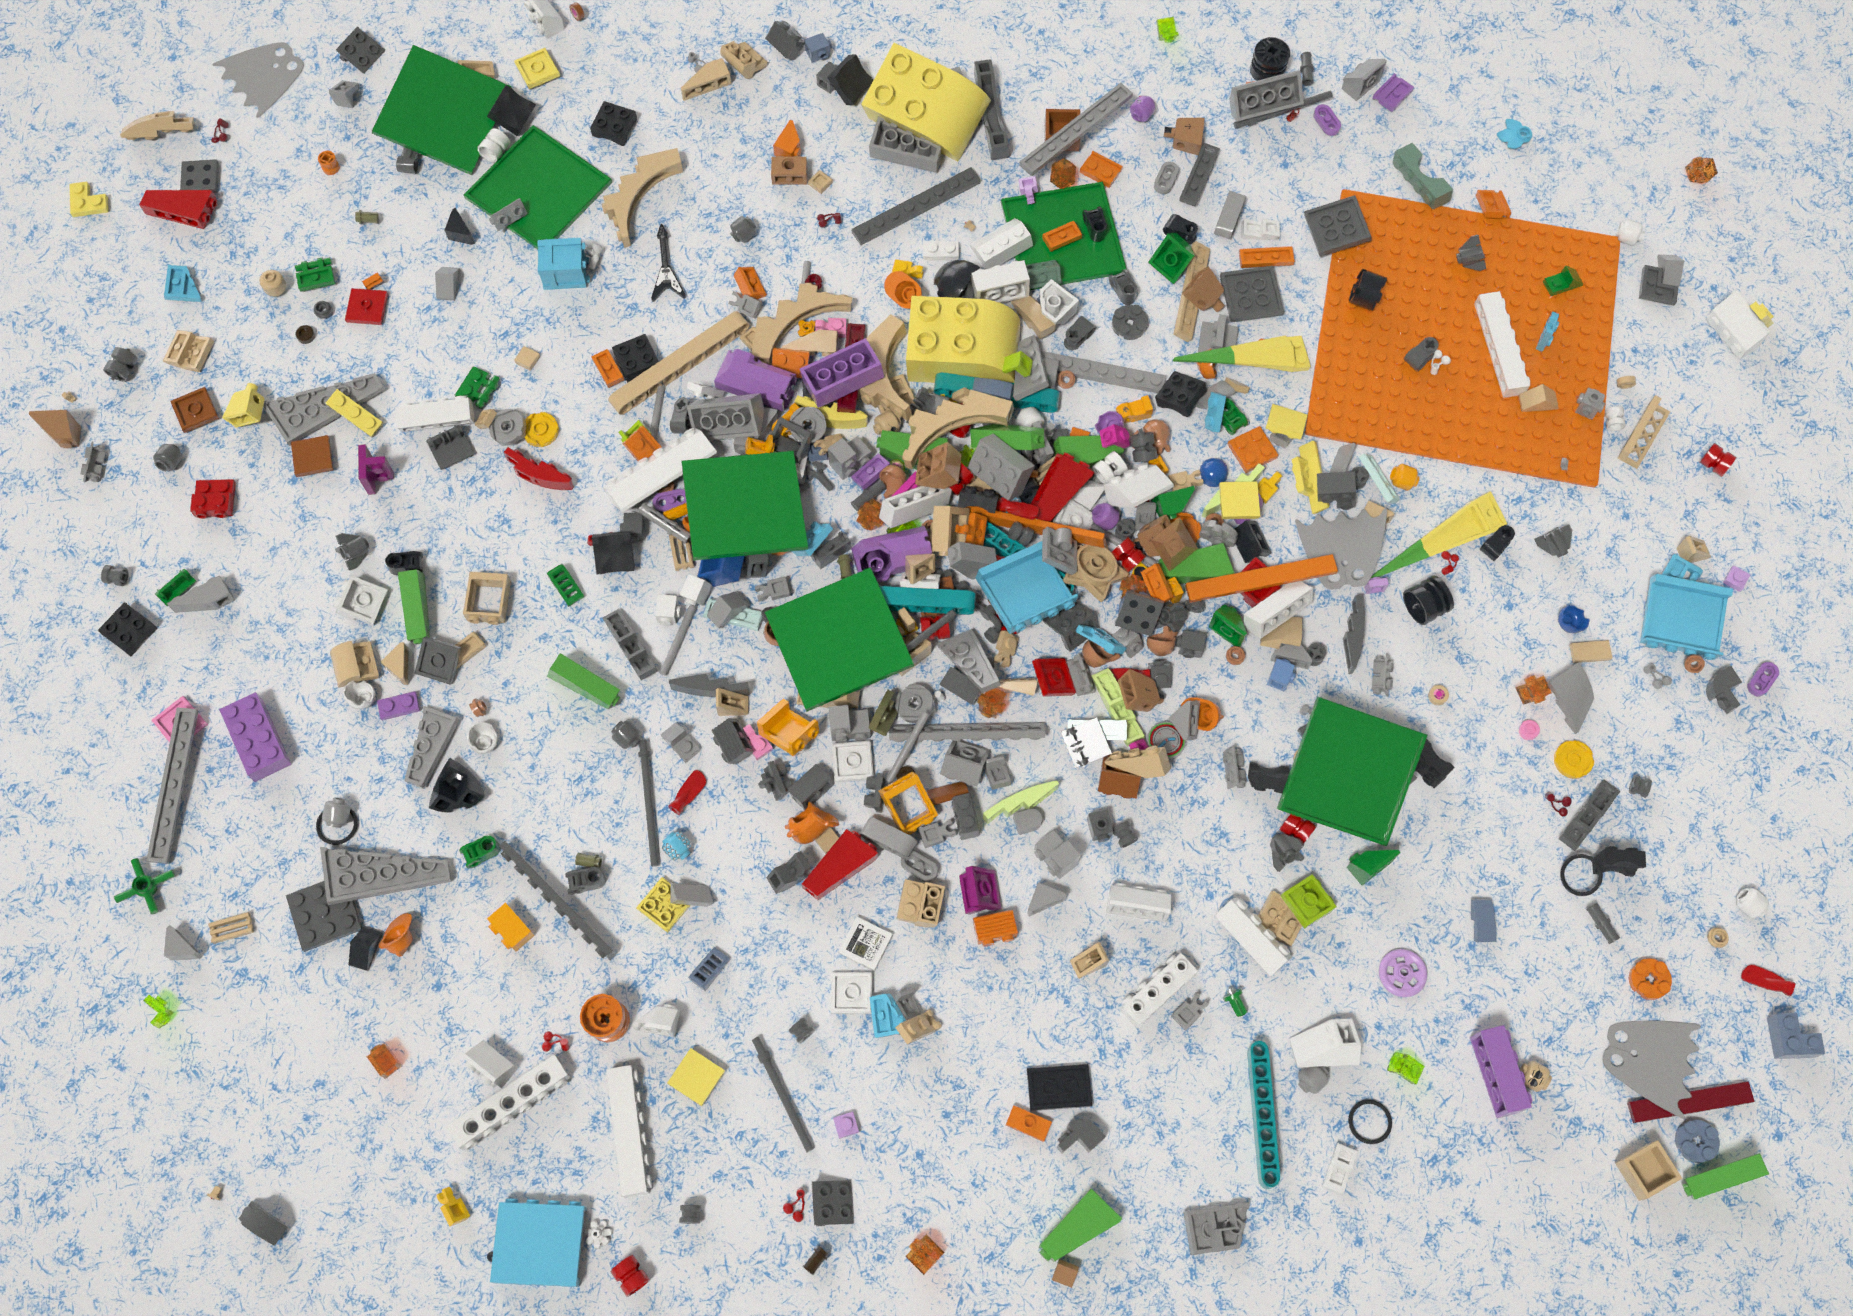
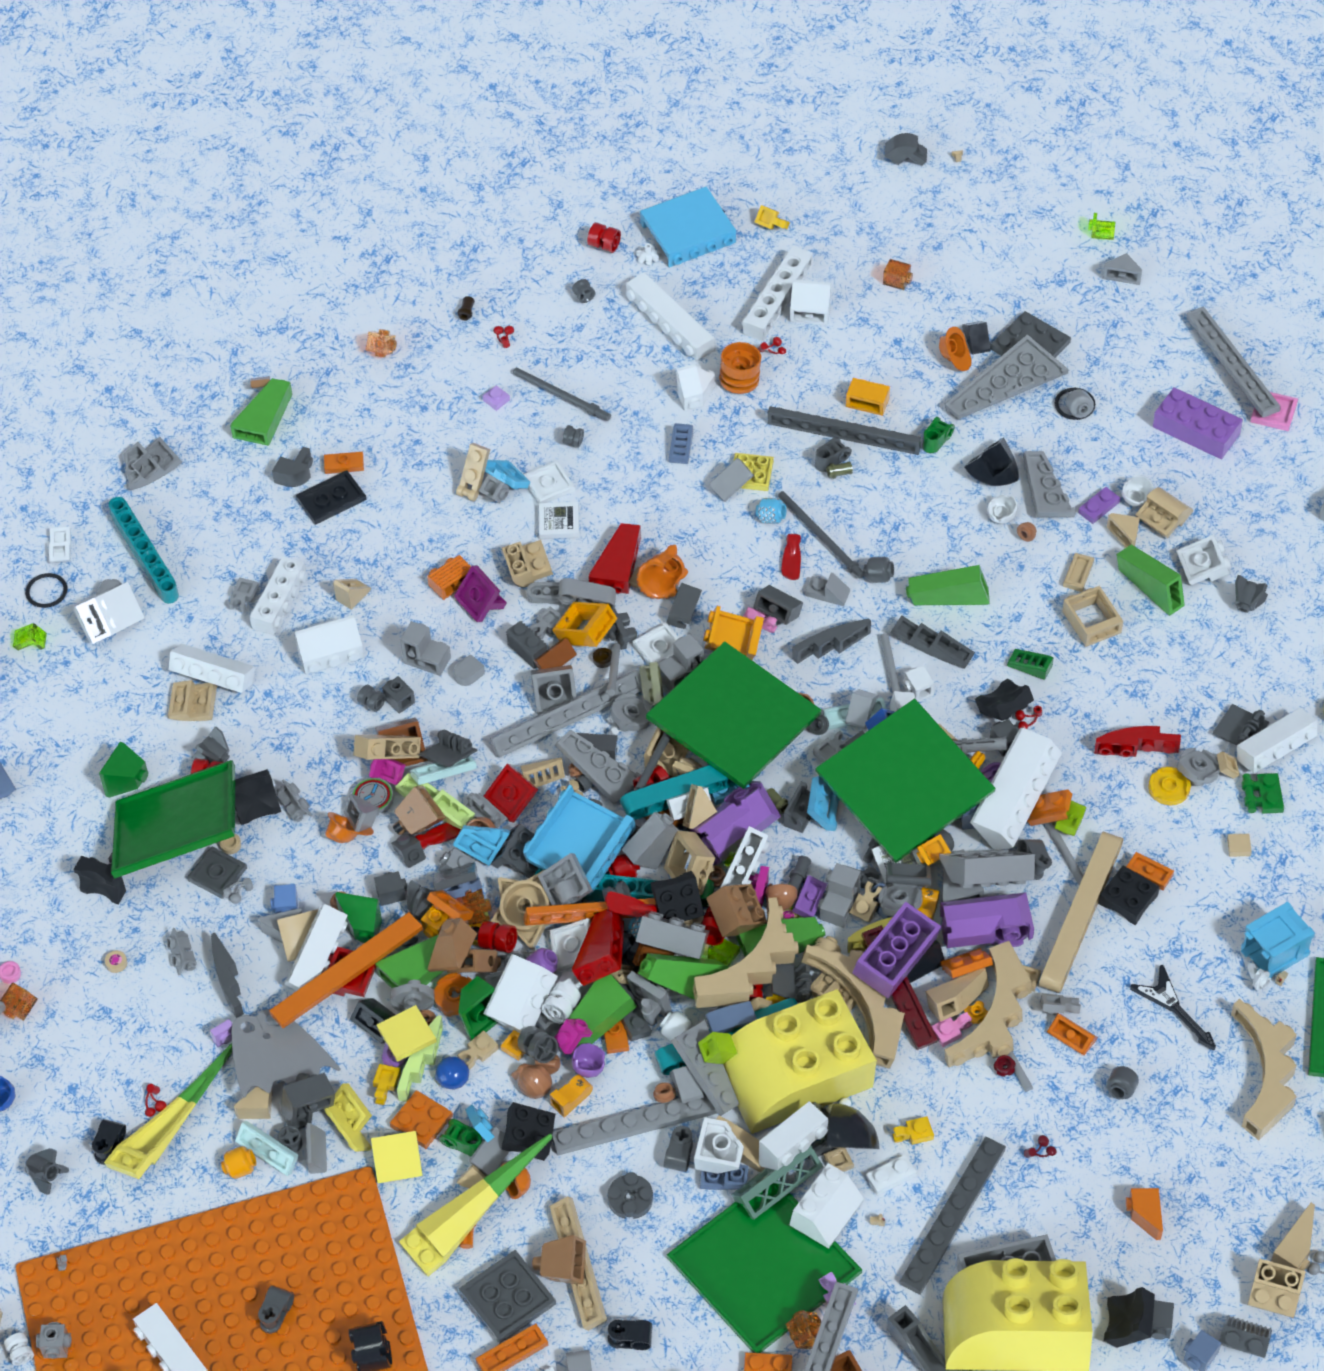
camera: 155 degrees right, 15 degrees down
(138, 882) = (1189, 292): green bar -> none
(213, 925) = (1093, 299): tan tile -> none
(372, 469) = (1291, 661): magenta bracket -> none
(407, 561) = (1191, 608): black piece -> none
(437, 660) = (1092, 546): dark grey tile -> none
(696, 1077) = (639, 371): light yellow tile -> none
(700, 390) = (1032, 882): white plate -> none
(731, 703) = (804, 629): tan slope -> none
(772, 780) = (711, 593): dark grey hips -> none
(789, 874) = (658, 533): dark grey brick -> none
(795, 176) = (1128, 1167): medium nougat brick -> none
(820, 181) = (1080, 1189): tan tile -> none
(832, 1202) = (476, 344): dark grey hinge -> none
(869, 515) = (777, 859): clear orange brick -> none
(901, 288) = (897, 1098): orange piece -> none
(974, 530) = (661, 864): orange plate -> none
(992, 703) = (553, 737): clear orange brick -> none
(997, 773) = (518, 692): light grey bracket -> none
(1027, 798) = (480, 684): yellowish green slope -> none
(1044, 898) = (417, 613): light grey slope -> none
(1062, 236) = (762, 1251): orange plate -> none
(1095, 221) = (735, 1289): black piece -> none
(1123, 284) = (662, 1233): dark grey piece -> none
(1162, 643) = (421, 870): nougat piece -> none
(1172, 257) = (620, 1293): green slope -> none
(1217, 335) = (519, 1222): light grey bracket -> none
(1236, 1001) = (208, 620): green piece -> none
(1308, 901) = (171, 716): lime plate -> none
(1317, 651) = (255, 934): dark grey wheel -> none
(1388, 980) = (51, 698): lavender plate -> none
(1428, 600) = (161, 1033): black wheel -> none
(1444, 360) = (245, 1321): white piece -> none
(1538, 399) = (114, 1323): tan slope -> none

